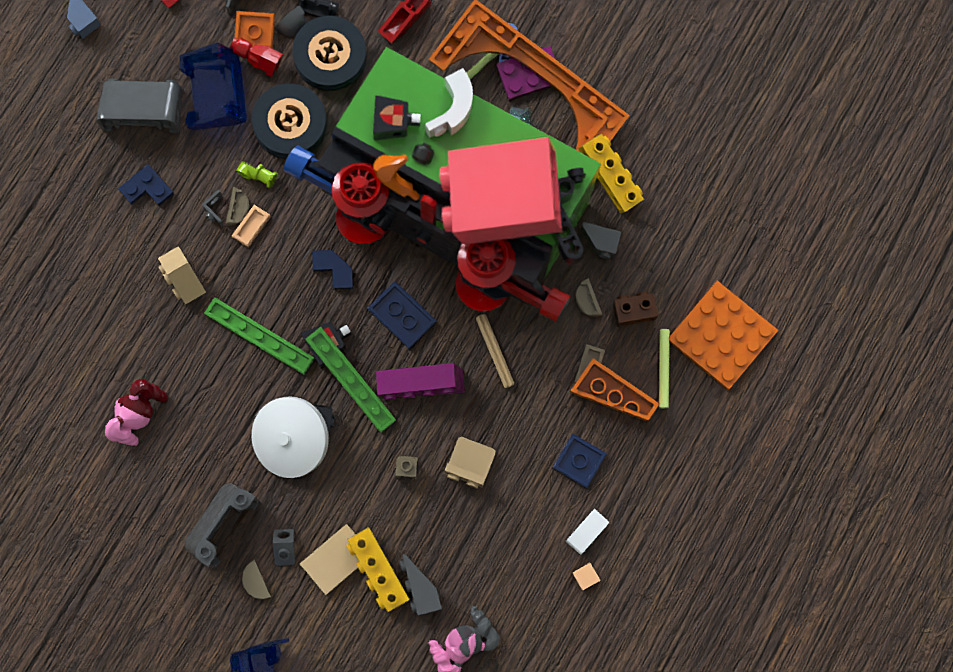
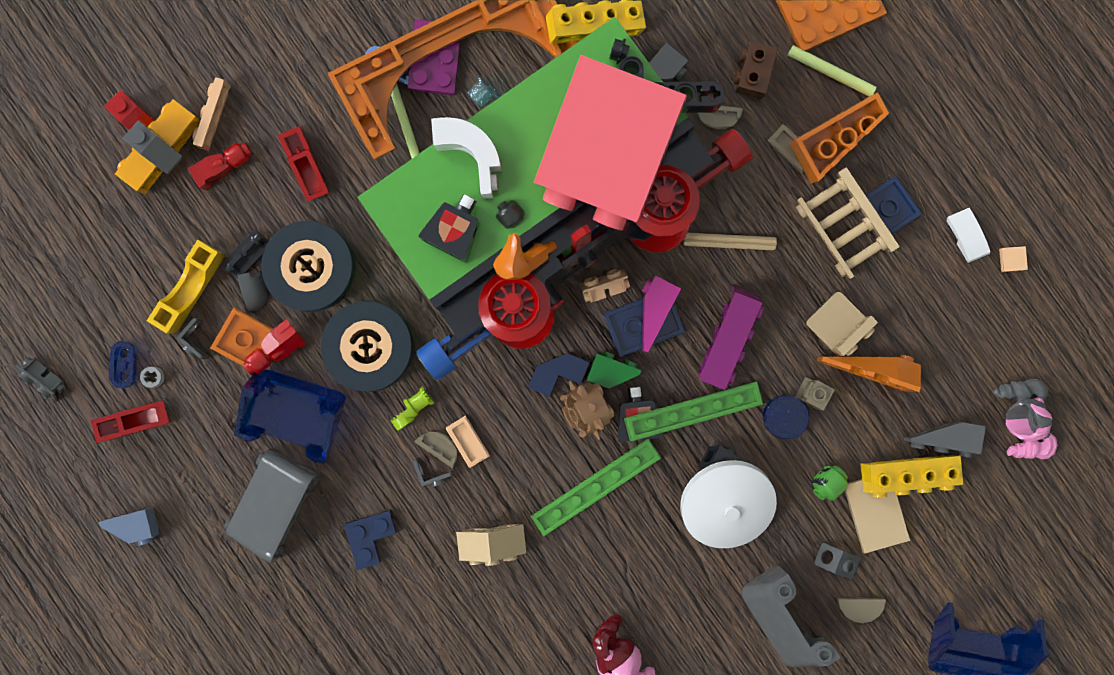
camera: 60 degrees left, 10 degrees up
(315, 297) = (586, 409): none -> medium nougat brick
(342, 510) = (830, 482): none -> bright green head
(351, 305) = (609, 372): none -> green slope
(378, 453) = (785, 417): none -> clear blue head
(416, 315) = (656, 305): none -> dark pink slope
(422, 277) = (614, 281): none -> light nougat hinge
(451, 516) = (890, 371): none -> orange wedge
(561, 447) = (870, 222): none -> tan fence

